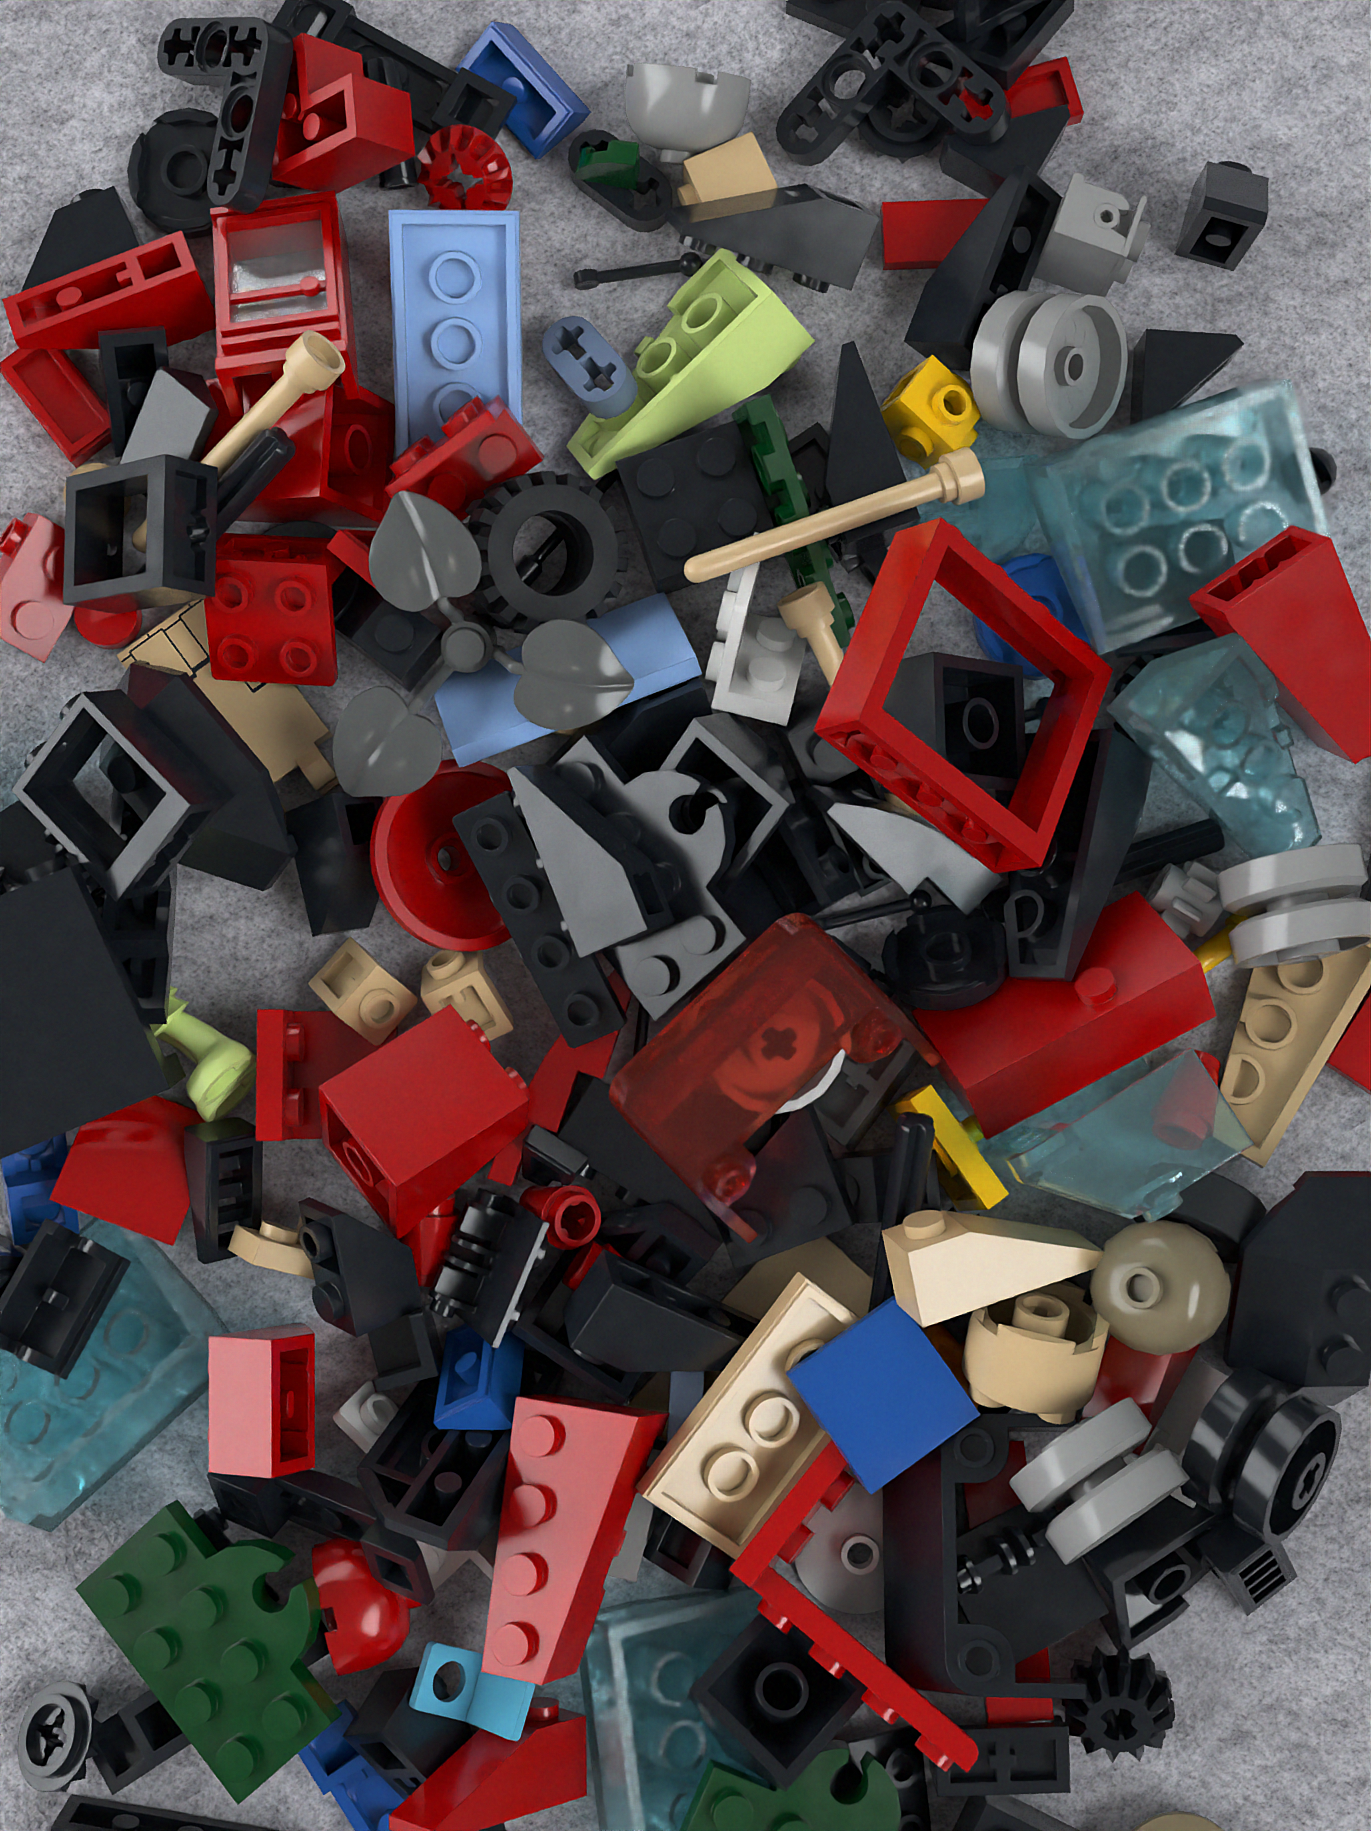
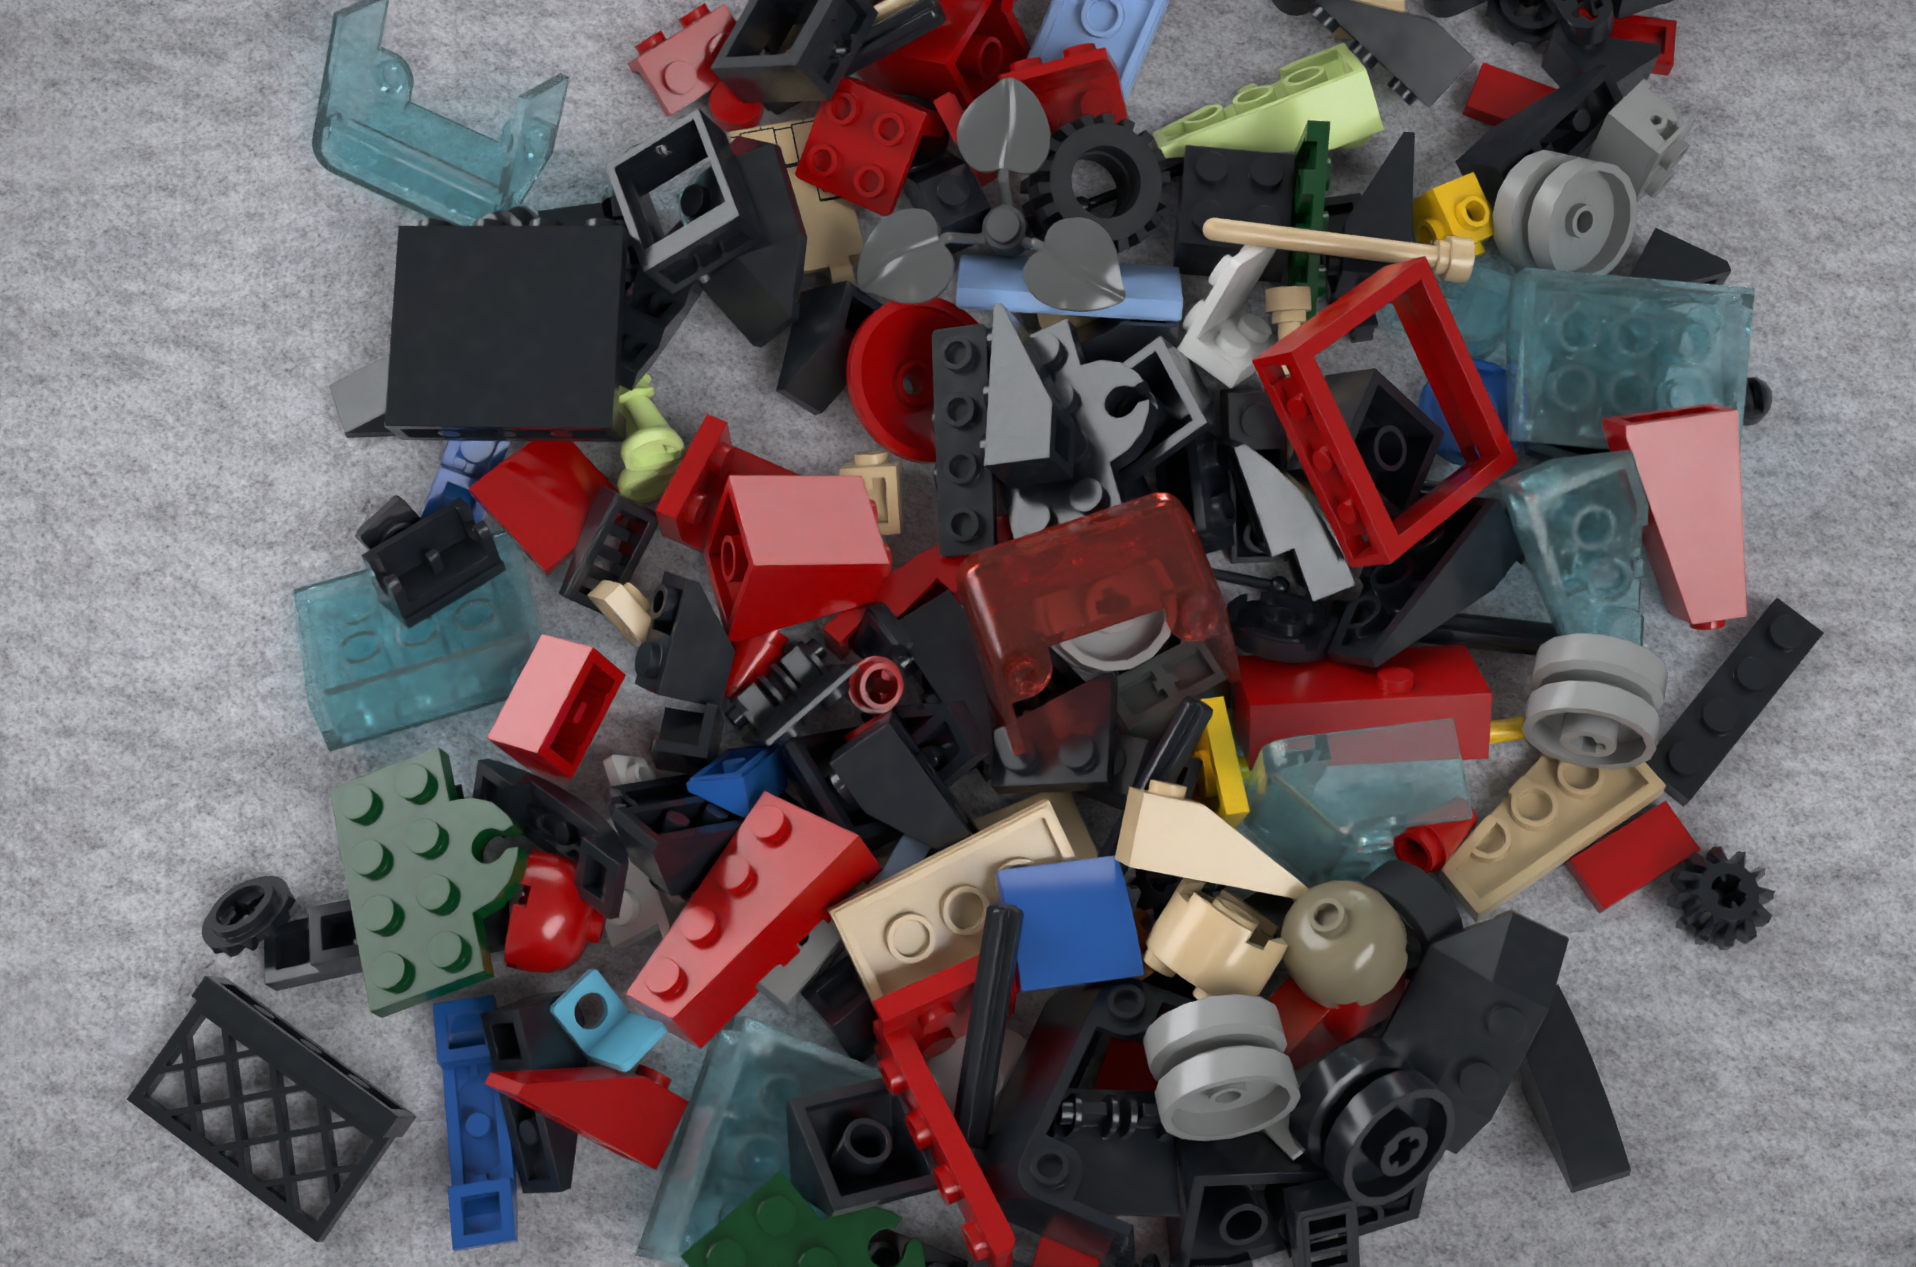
camera: 25 degrees right, 15 degrees down
(362, 992) = (794, 447): tan bracket -> none
(590, 278) = (1227, 25): black hinge -> none
(598, 360) = (1205, 76): sand blue beam -> none
(848, 1532) = (988, 1021): none -> black axle
(1186, 898) = (1506, 670): light grey gear -> none
(1223, 215) = (1752, 178): black slope -> none

